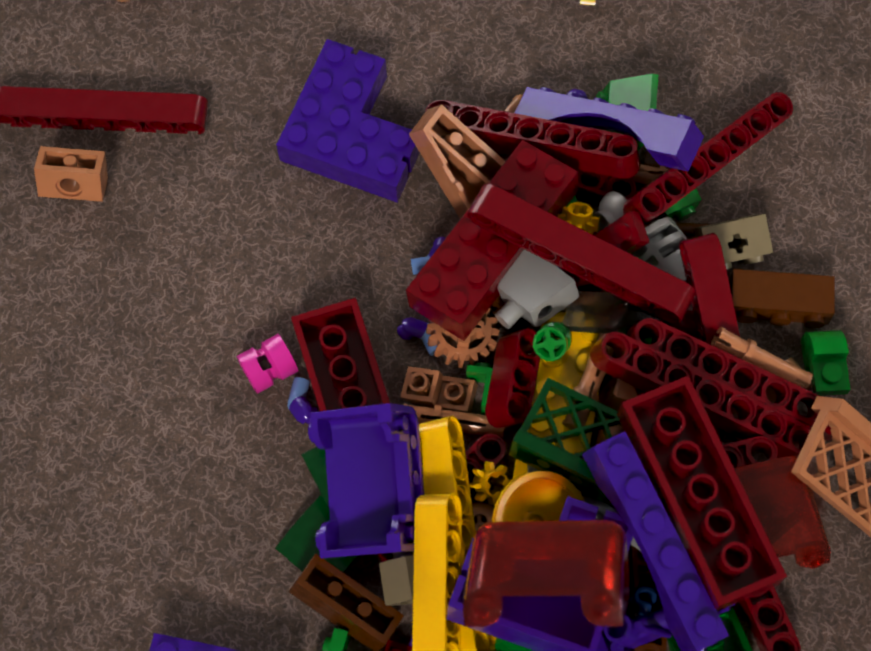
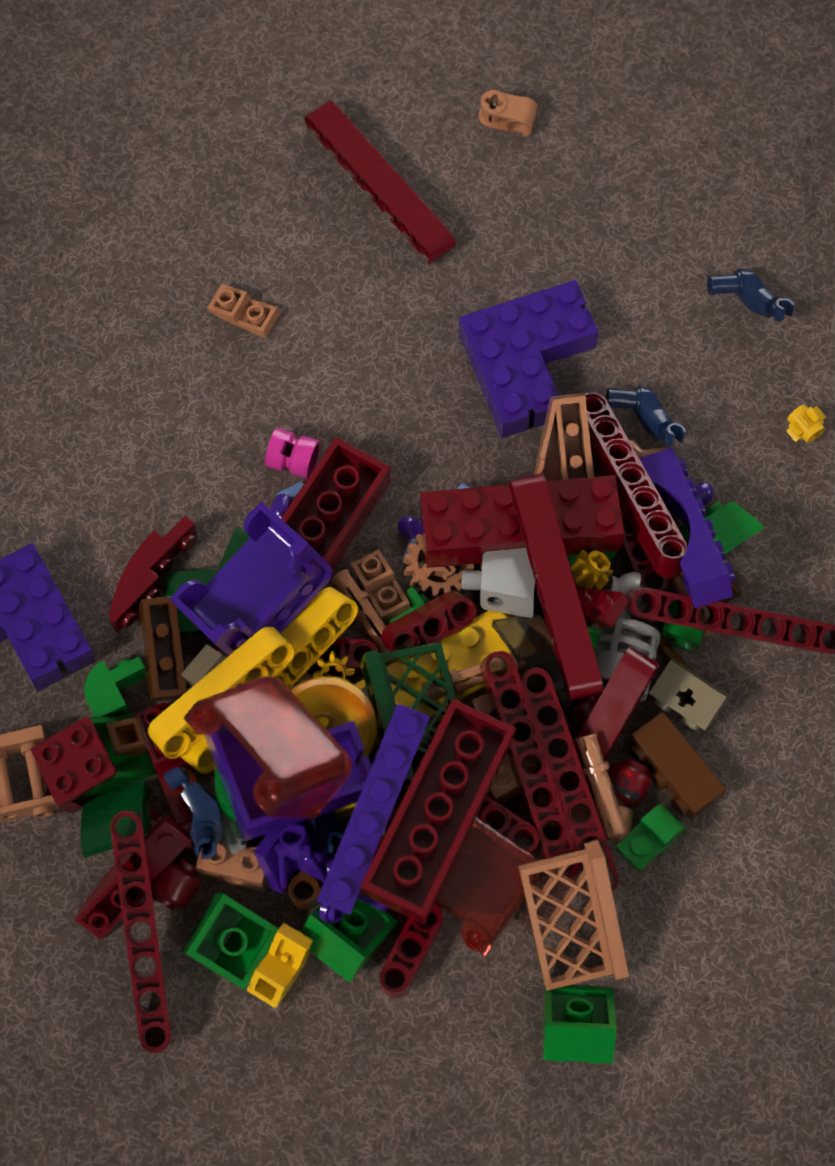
camera: 45 degrees right, 0 degrees up
(71, 173) = (312, 205): nougat brick -> none
(105, 302) = (239, 309): none -> nougat slope
(264, 571) = (140, 575): none -> dark red slope
(481, 82) = (648, 412): none -> dark blue arm
(547, 346) = (466, 625): green wheel -> none
(769, 337) = (629, 782): none -> dark red head

